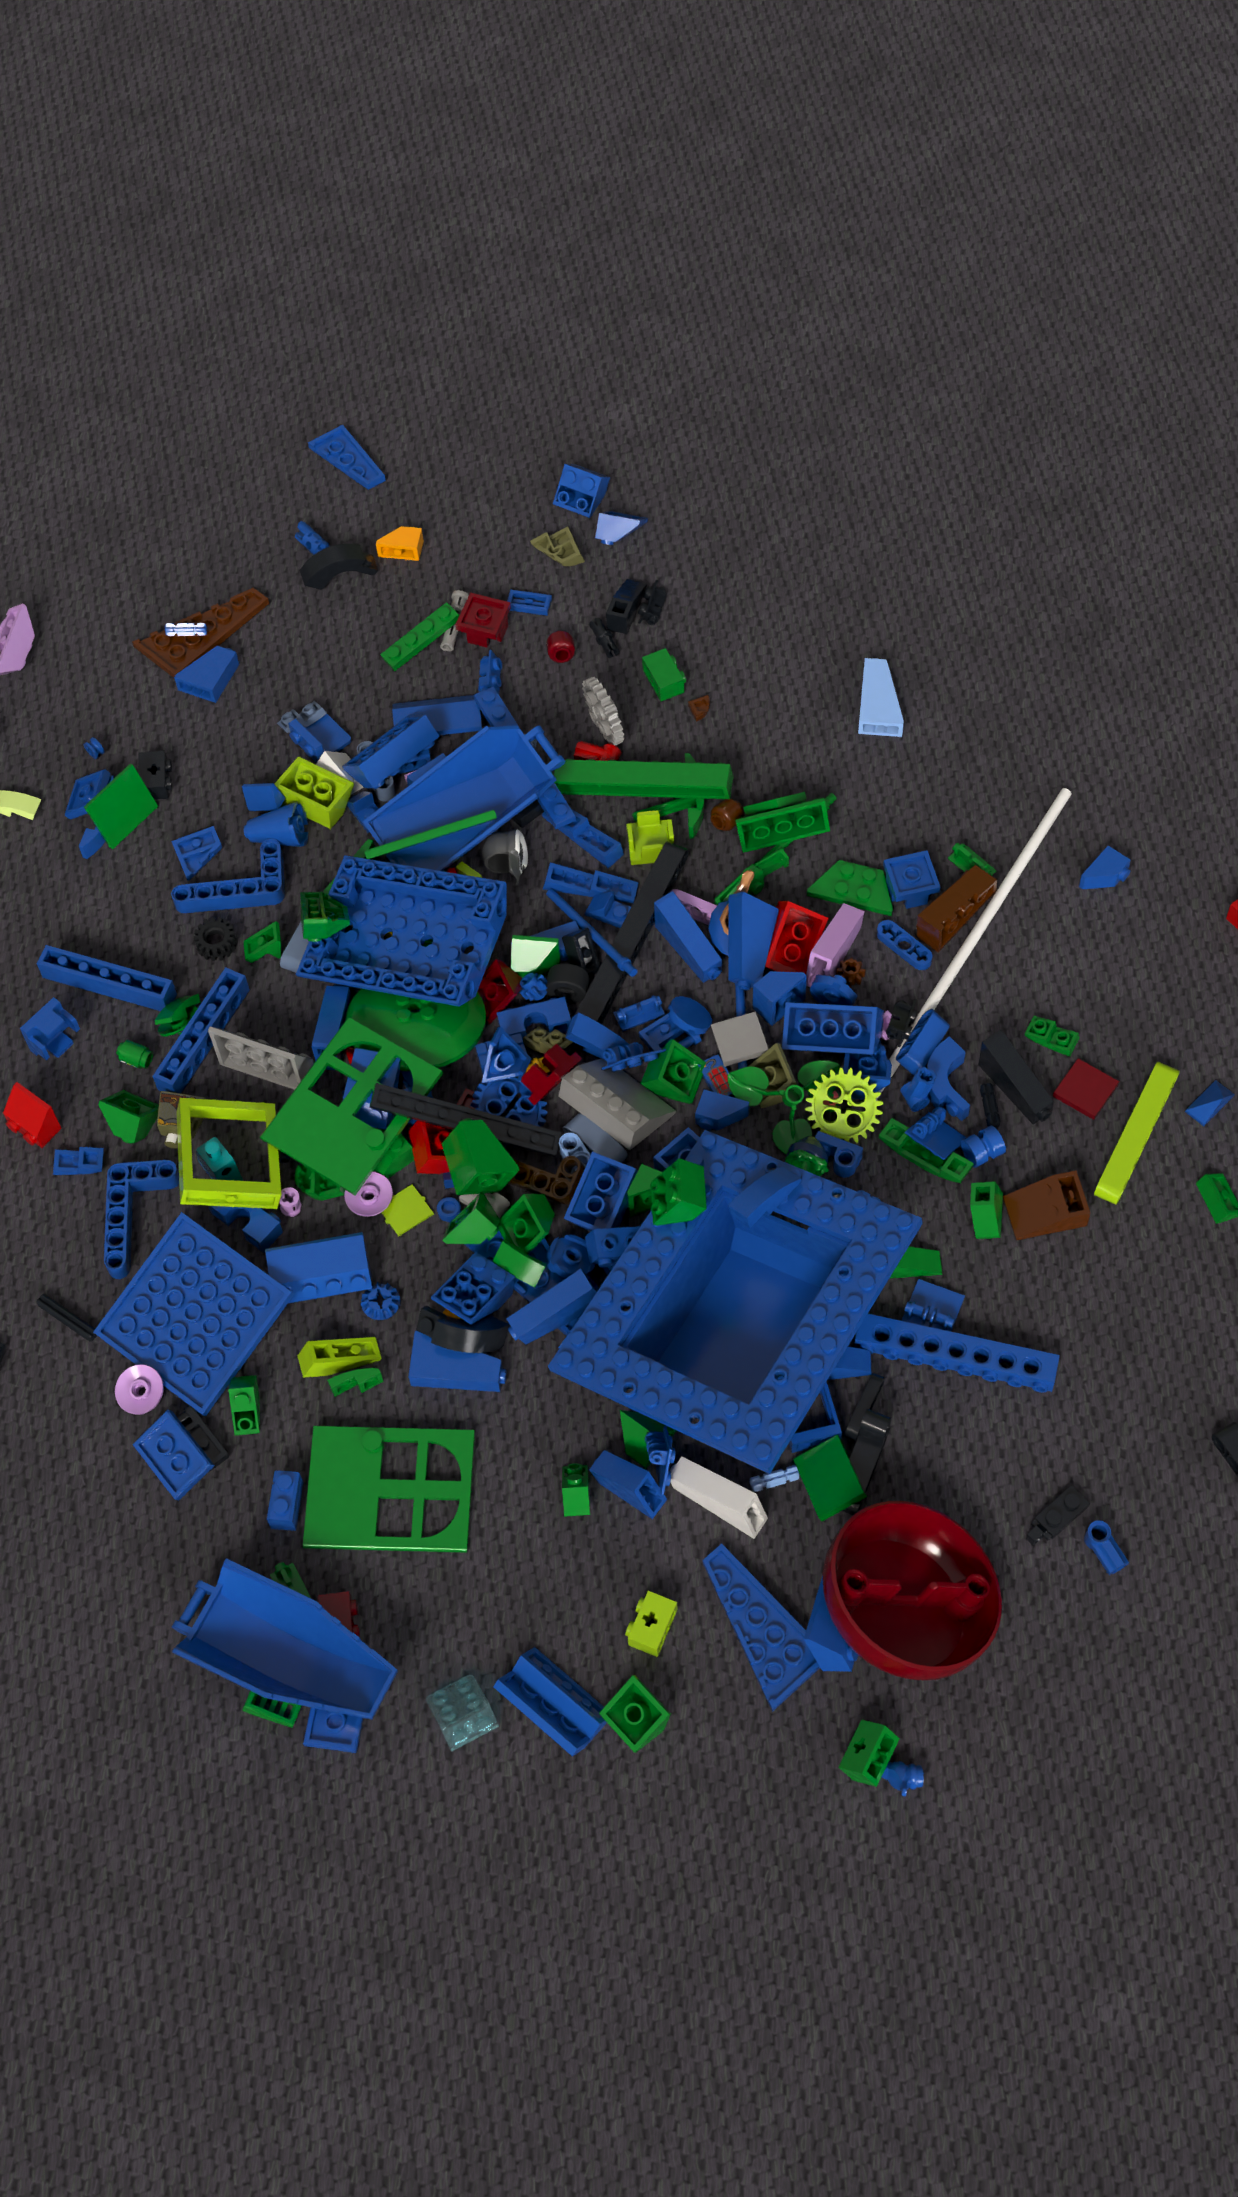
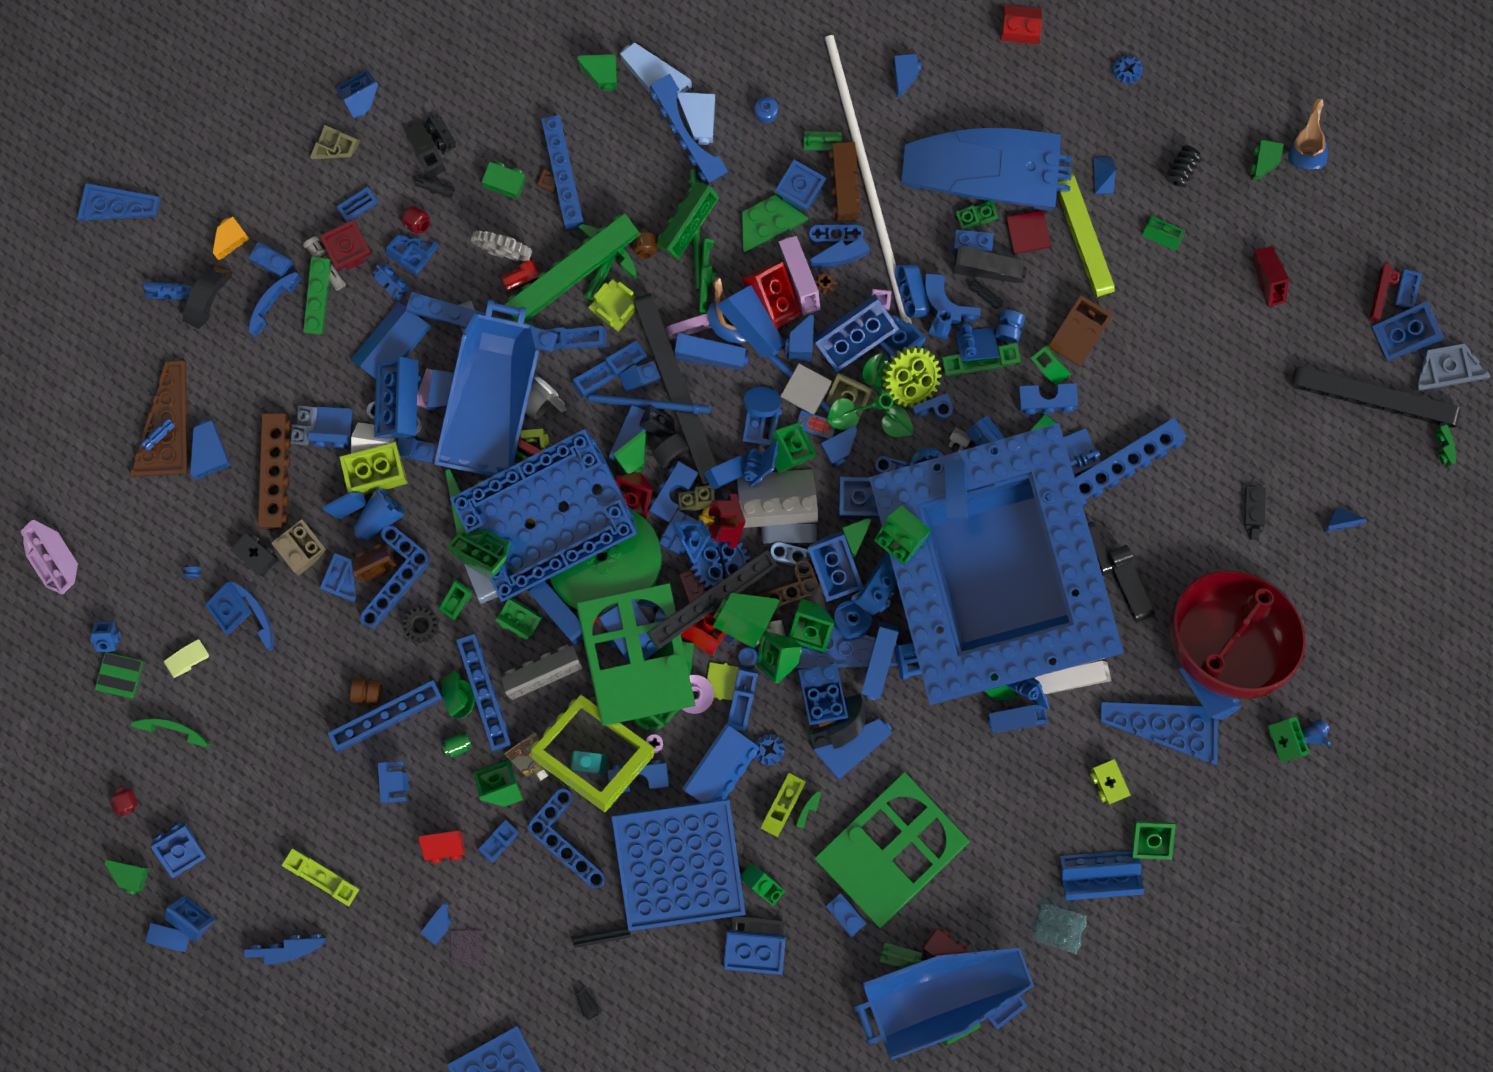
camera: 50 degrees left, 20 degrees up
(114, 947) = (364, 691): none -> reddish brown wheel
(121, 806) = (264, 597): green piece -> none
(131, 1382) = (697, 945): lavender dish -> none
(190, 798) = (299, 547): none -> dark tan slope
(230, 858) = (374, 563): none -> reddish brown slope
(238, 730) = (270, 424): none -> reddish brown brick
(296, 1004) = (519, 619): none -> green bracket
(380, 609) = (287, 283): none -> blue slope
(404, 1235) = (742, 698): none -> blue slope
(414, 584) = (271, 260): none -> blue brick
(430, 834) = (489, 434): green tile -> none
(518, 1263) = (829, 654): green slope -> none
(529, 668) = (410, 253): none -> blue slope
(533, 986) = (653, 472): blue gear -> none
(575, 1490) = (994, 749): green slope -> none
(580, 489) = (303, 88): blue slope -> none
(639, 1013) = (727, 427): blue hinge -> none
(718, 707) = (562, 172): none -> blue brick
(775, 803) = (671, 211): green tile -> none
(808, 1155) = (921, 428): hair -> none
(829, 1478) = (1130, 610): green tile -> none
(832, 990) = (834, 307): blue plate -> none
(836, 657) = (600, 70): none -> green slope
(869, 711) = (709, 167): none -> blue arch
(883, 758) = (699, 115): none -> light blue slope
(889, 961) = (841, 254): none -> blue slope
(900, 1028) = (887, 282): black hinge -> none
(946, 798) = (766, 110): none -> blue head
(967, 1251) = (1031, 400): none -> blue arch
(1028, 1049) = (972, 239): none -> blue brick
(1105, 1549) = (1298, 505): blue piece -> none
(1107, 1000) = (989, 165): none -> blue windscreen
(1139, 1605) = (1343, 519): none -> blue slope

